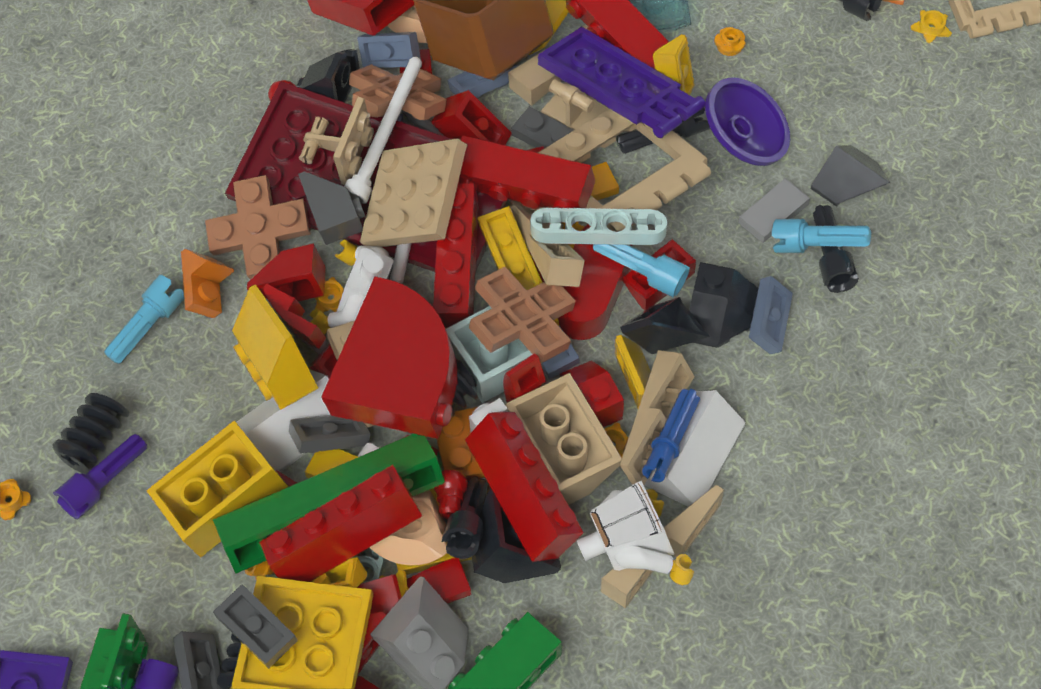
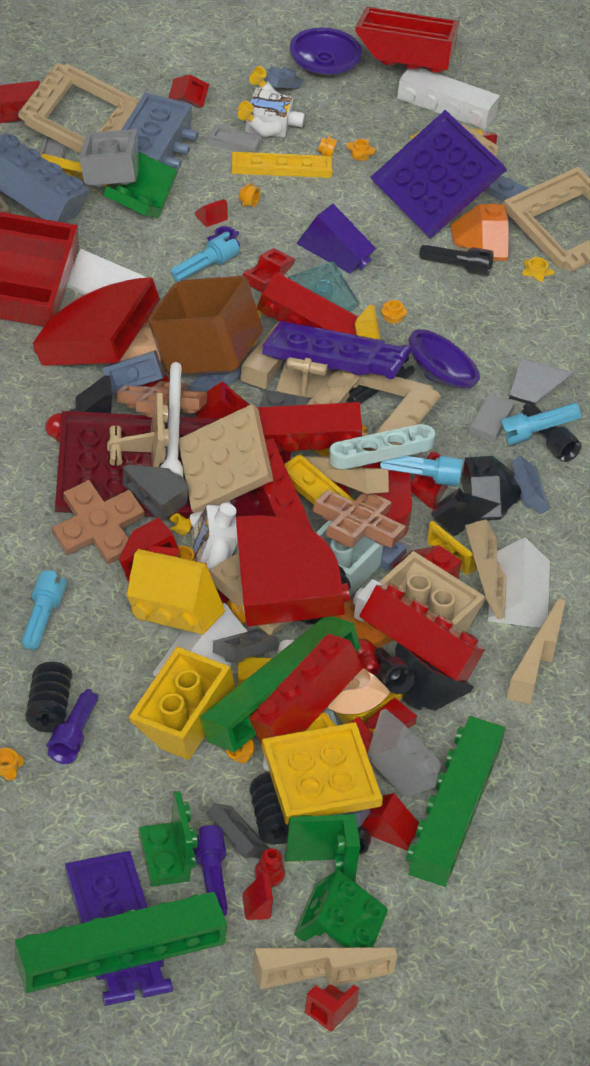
camera: 30 degrees left, 15 degrees down
(202, 283) = (75, 566): orange slope -> none
(255, 626) = (286, 766): dark grey plate -> none
(523, 378) = (381, 562): red slope -> none
(633, 534) = (520, 639): white torso -> none
(666, 446) = (511, 579): blue axle -> none

